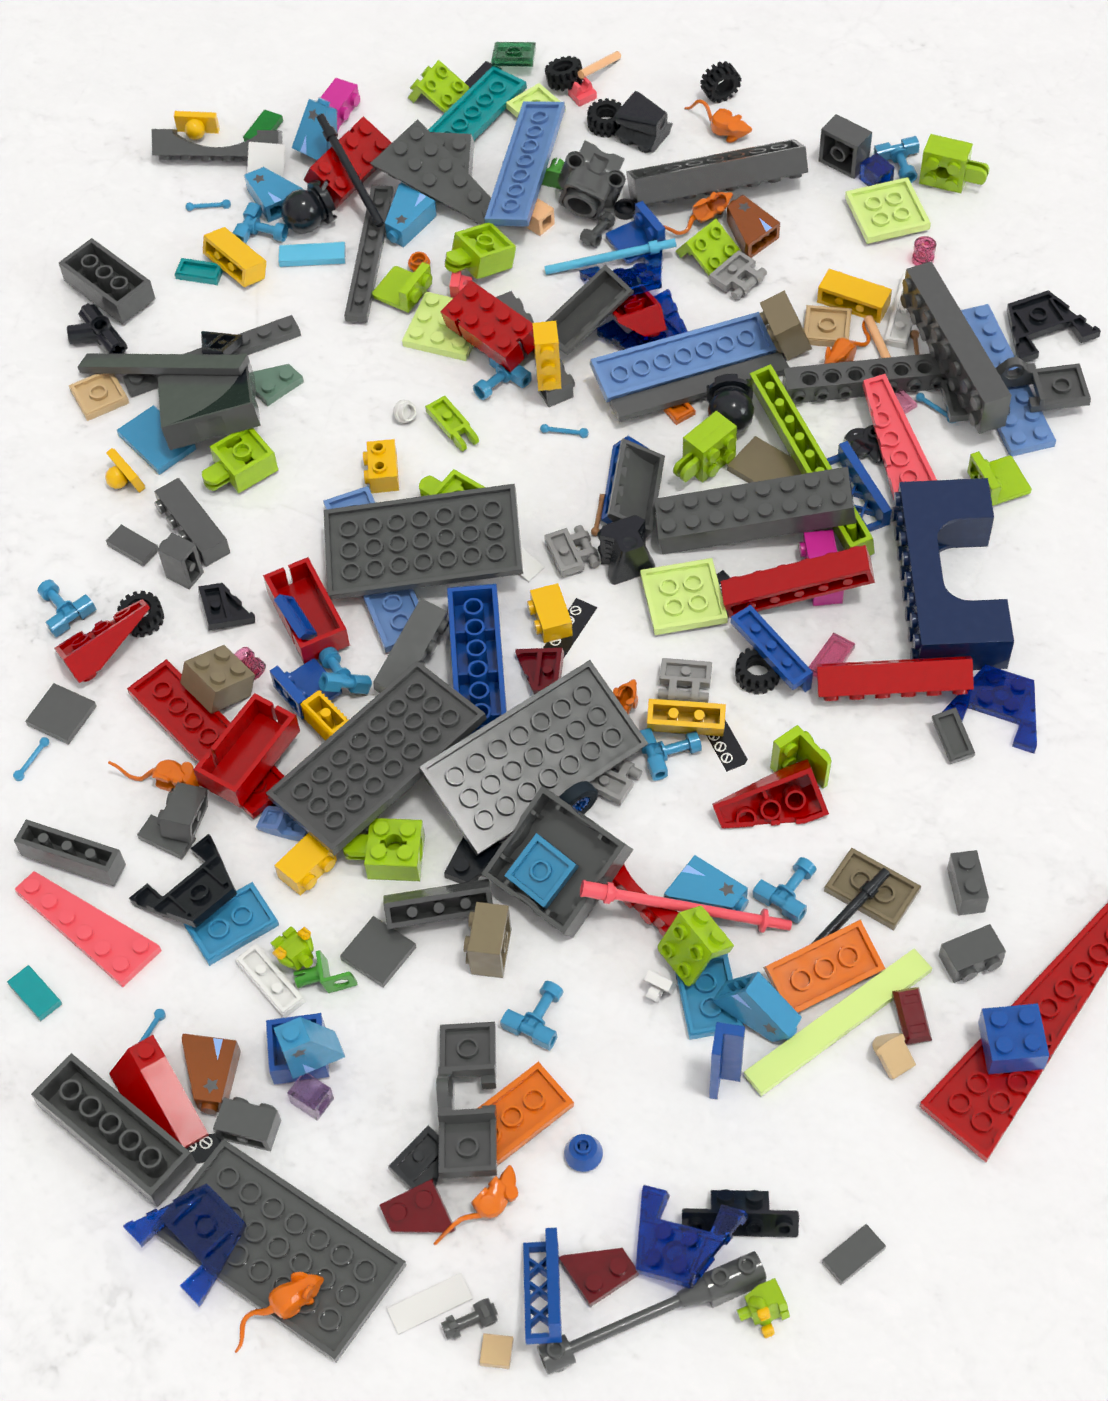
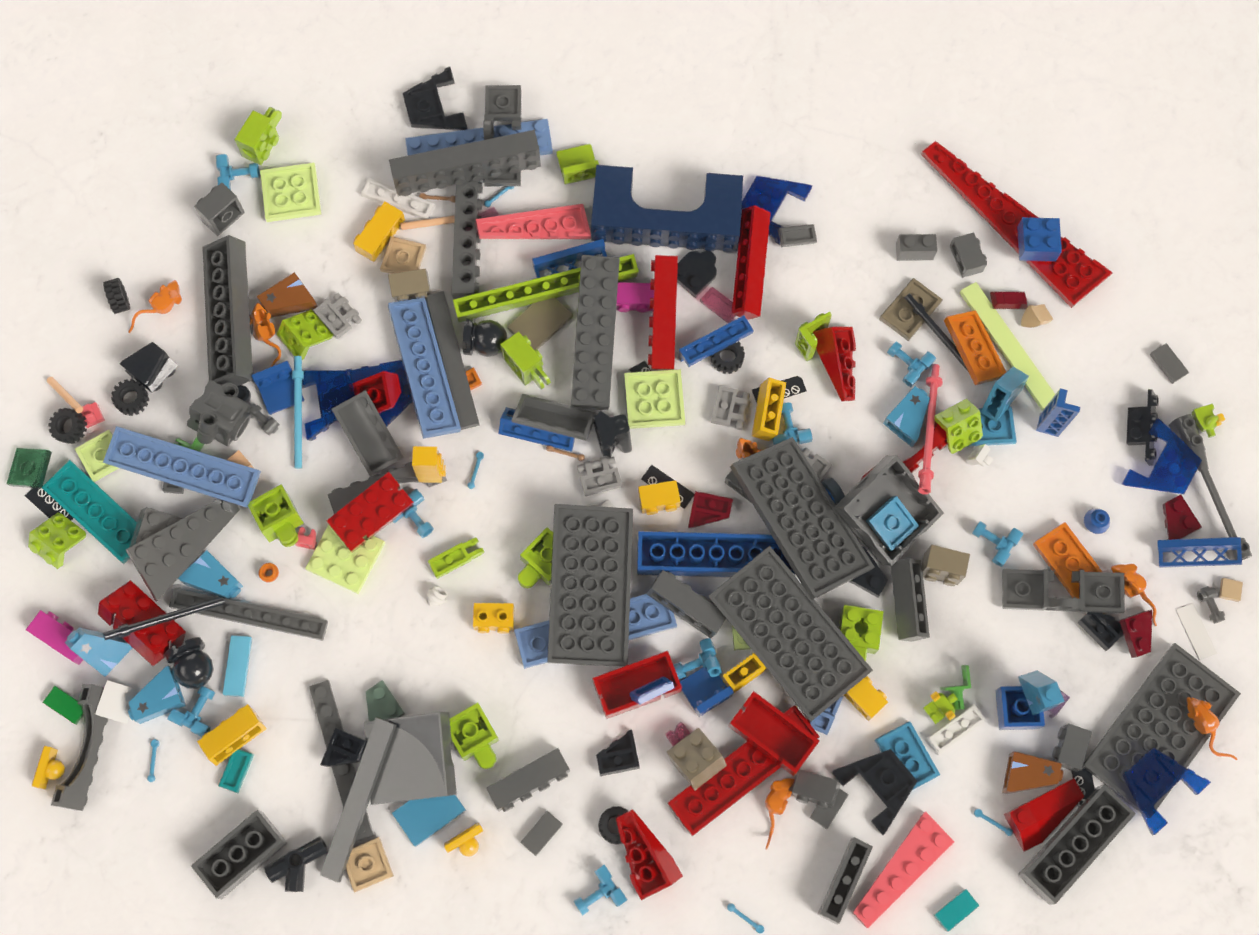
camera: 90 degrees left, 15 degrees up
(61, 713) = (705, 893): dark grey tile -> none
(180, 560) = (575, 787): dark grey brick -> none
(378, 951) = (938, 650): dark grey tile -> none
(404, 288) = (296, 587): lime bracket -> none
(845, 349) = (435, 250): orange animal -> none
(864, 442) = (527, 249): black plate -> none
(874, 625) = (696, 271): none -> black plate
(876, 170) = (248, 192): clear blue brick -> none
(924, 250) = (344, 177): clear pink wheel -> none

